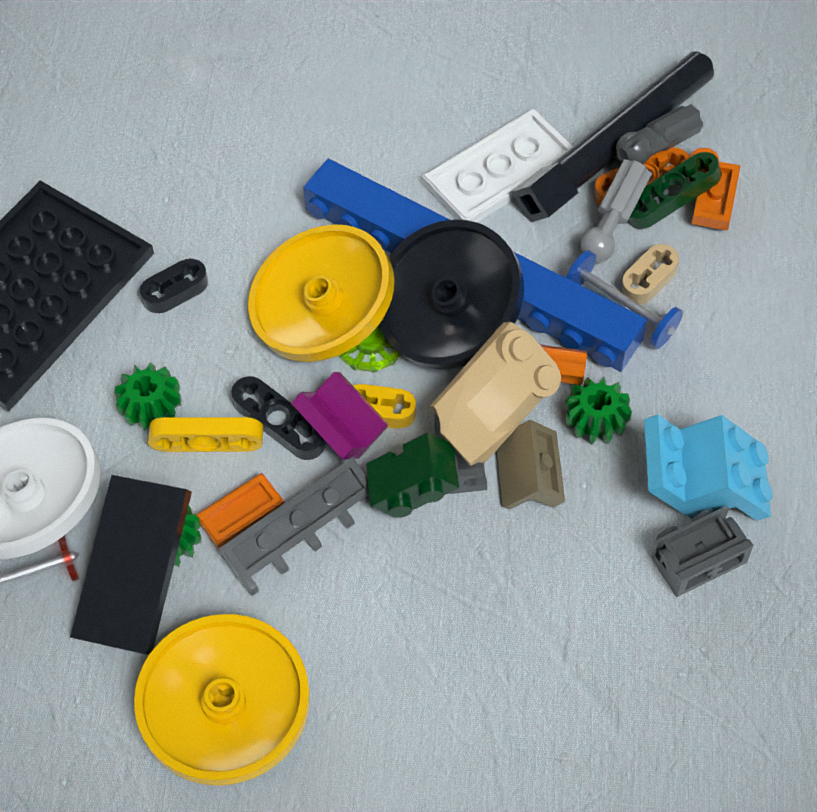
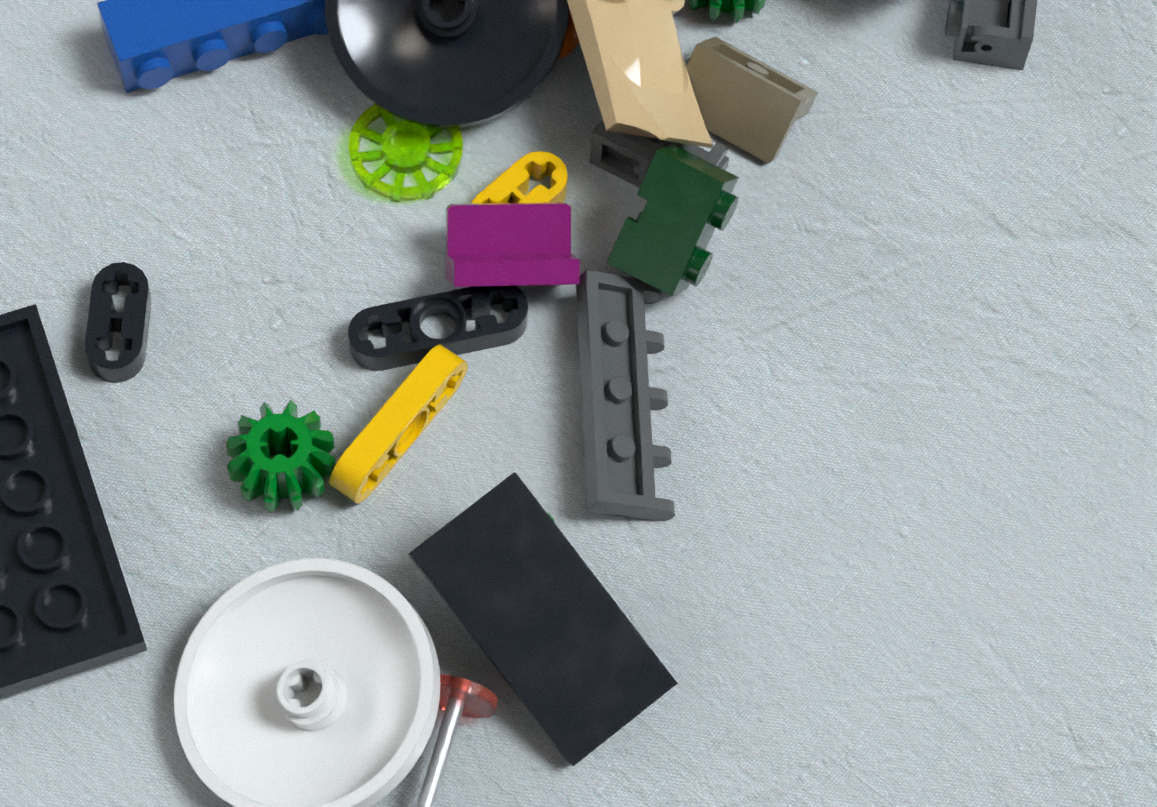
camera: 60 degrees left, 5 degrees up
(222, 699) = (811, 628): yellow dish -> none
(239, 510) = (544, 449): orange tile -> none
(321, 293) = (304, 149): yellow dish -> none

